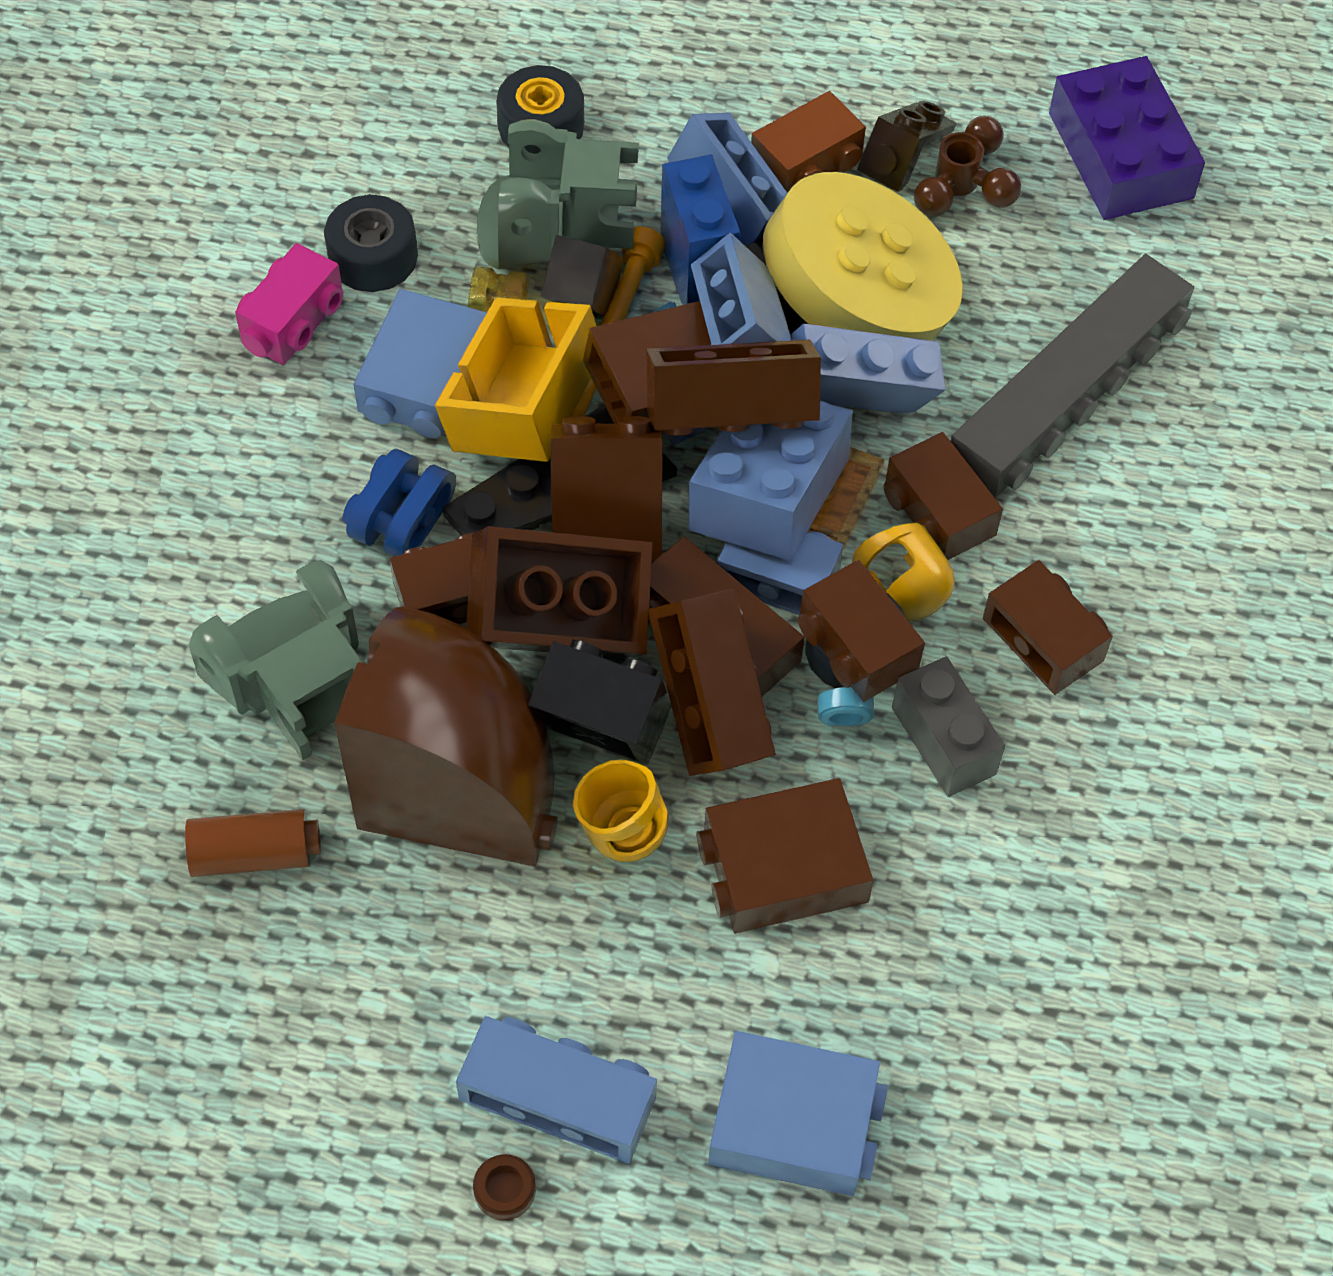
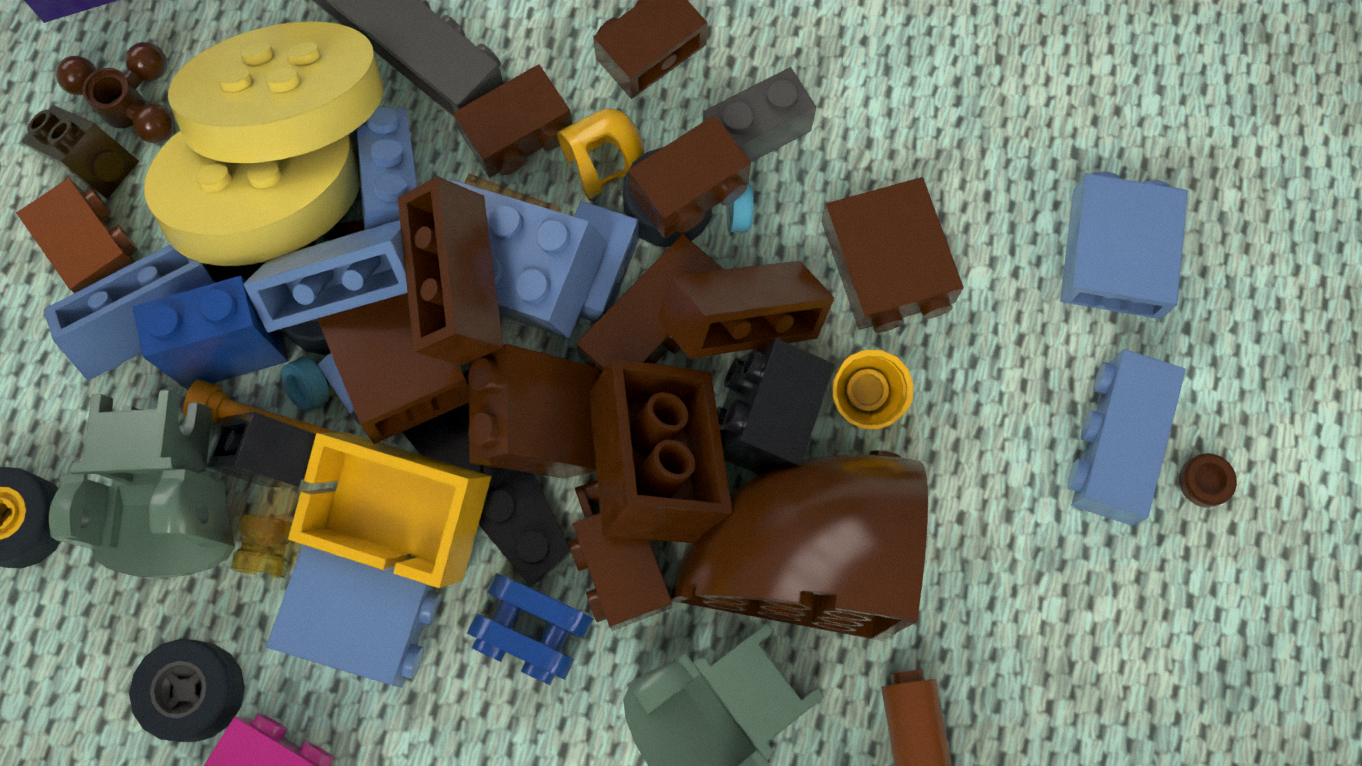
camera: 90 degrees left, 15 degrees up
(955, 276) = (276, 92): none -> light yellow brick

